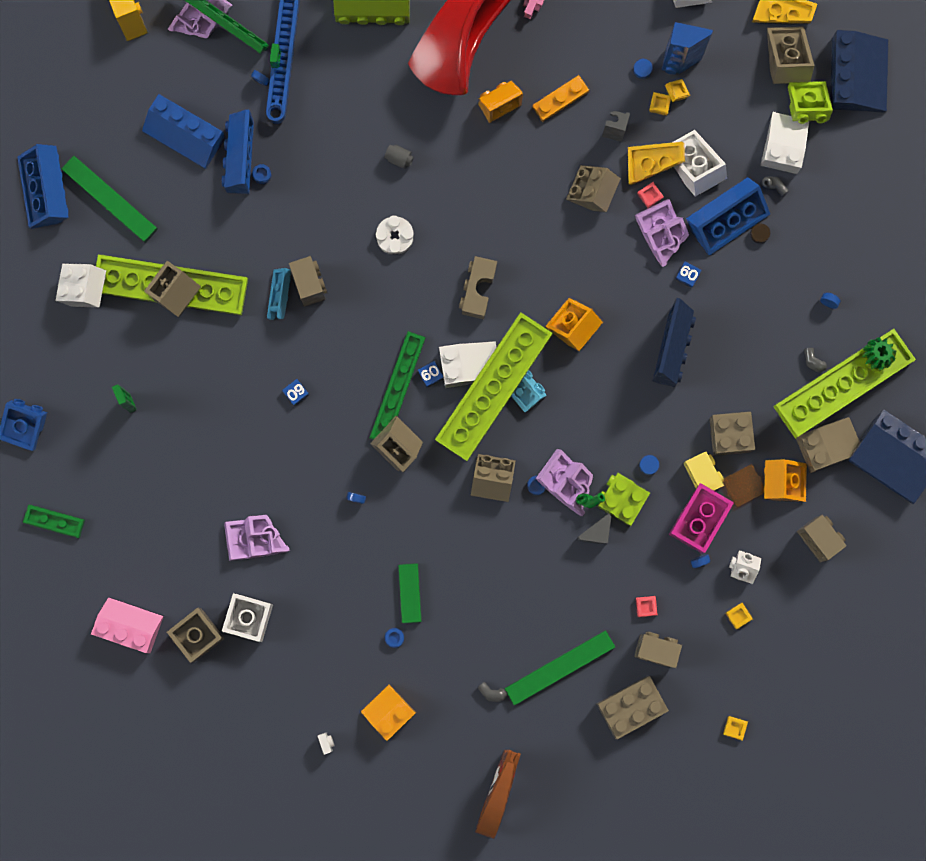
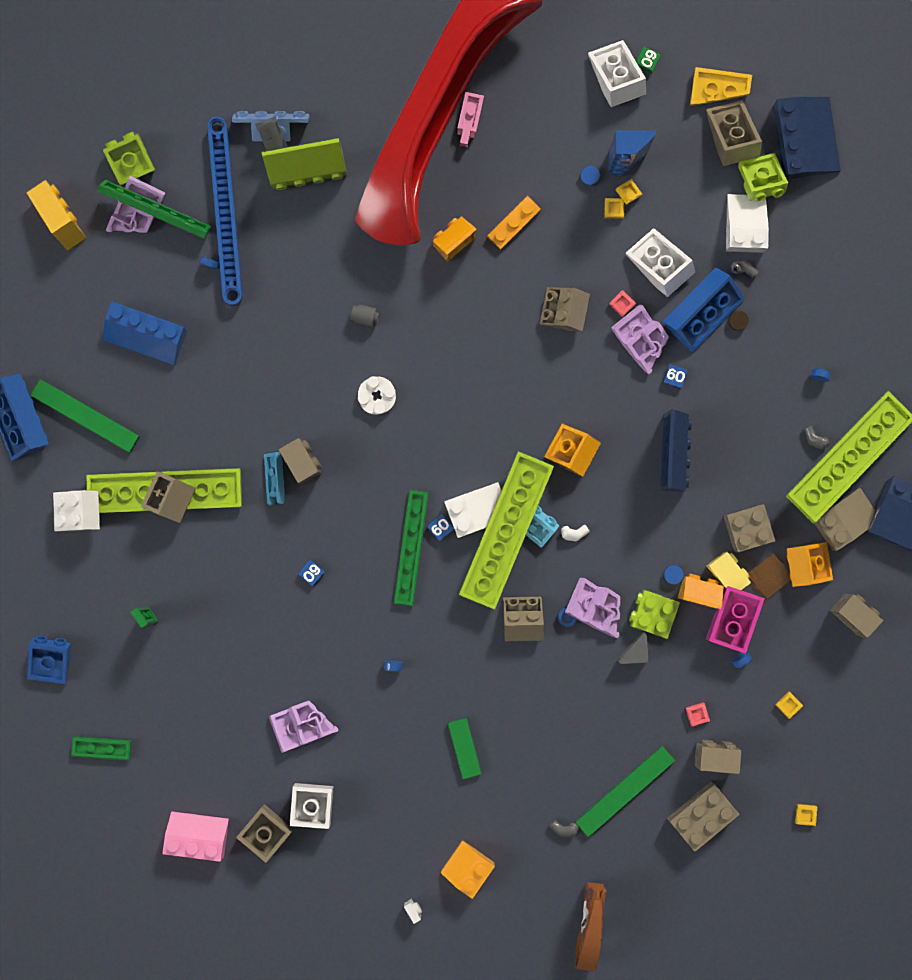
camera: 10 degrees left, 5 degrees up
(239, 152) = (204, 344): blue slope -> none
(261, 174) = (231, 360): blue tile -> none
(275, 55) = (220, 238): green tile -> none
(394, 637) = (458, 794): blue tile -> none
(397, 444) = (423, 605): dark tan slope -> none
(481, 271) = (468, 449): dark tan arch -> none
(558, 406) = (574, 535): none -> white arm
(590, 501) = (622, 623): green arm -> none
(617, 129) = (578, 244): dark grey hinge -> none
(652, 159) = (618, 268): yellow wing -> none
(673, 486) = (701, 592): none -> light orange slope
(745, 567) = (786, 657): white brick -> none
(879, 353) = (882, 426): green gear -> none

